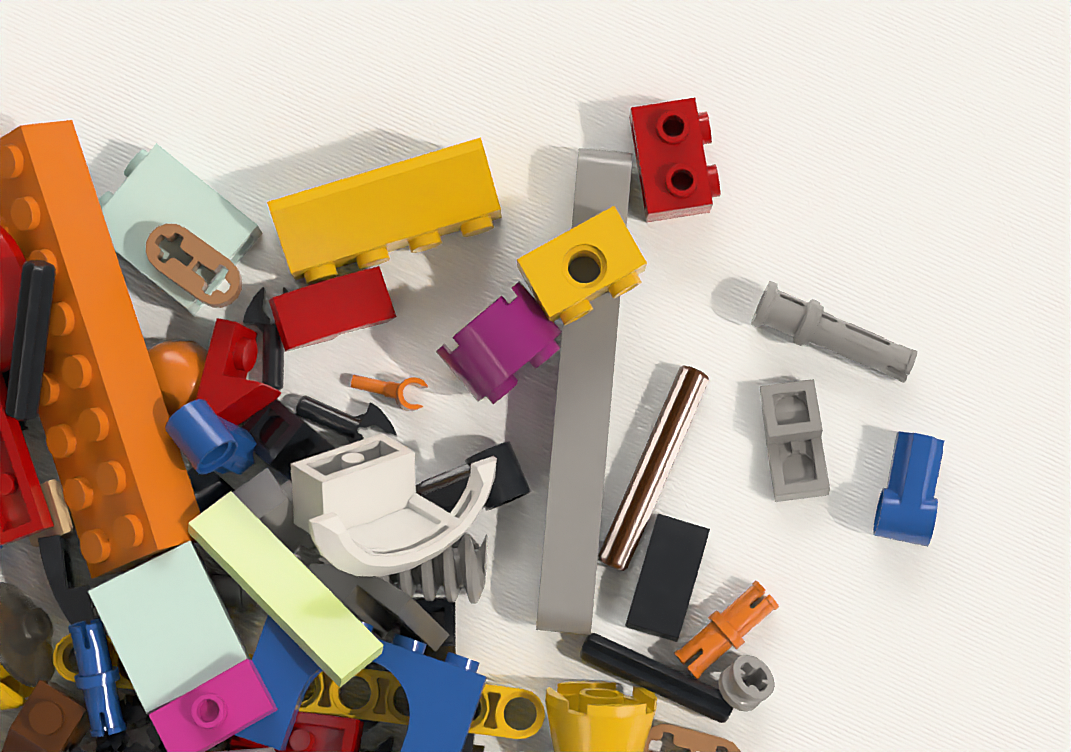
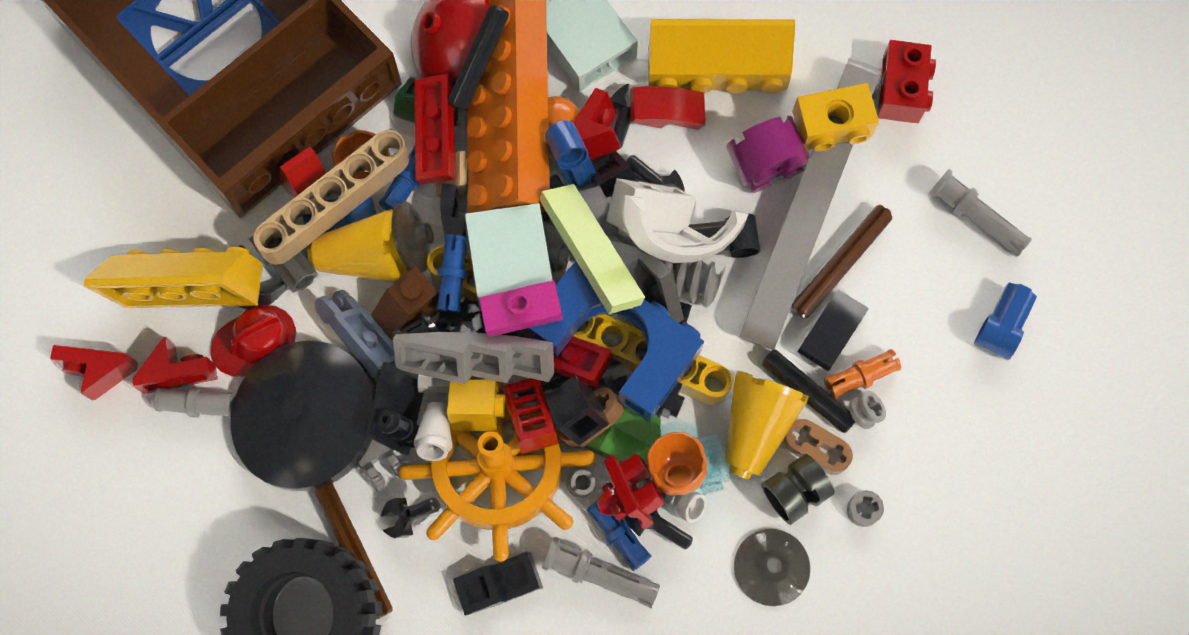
camera: 15 degrees right, 10 degrees down
(202, 255) = (597, 45): medium nougat beam -> none
(389, 389) = (691, 169): orange hand -> none
(794, 440) = (937, 271): light grey slope -> none

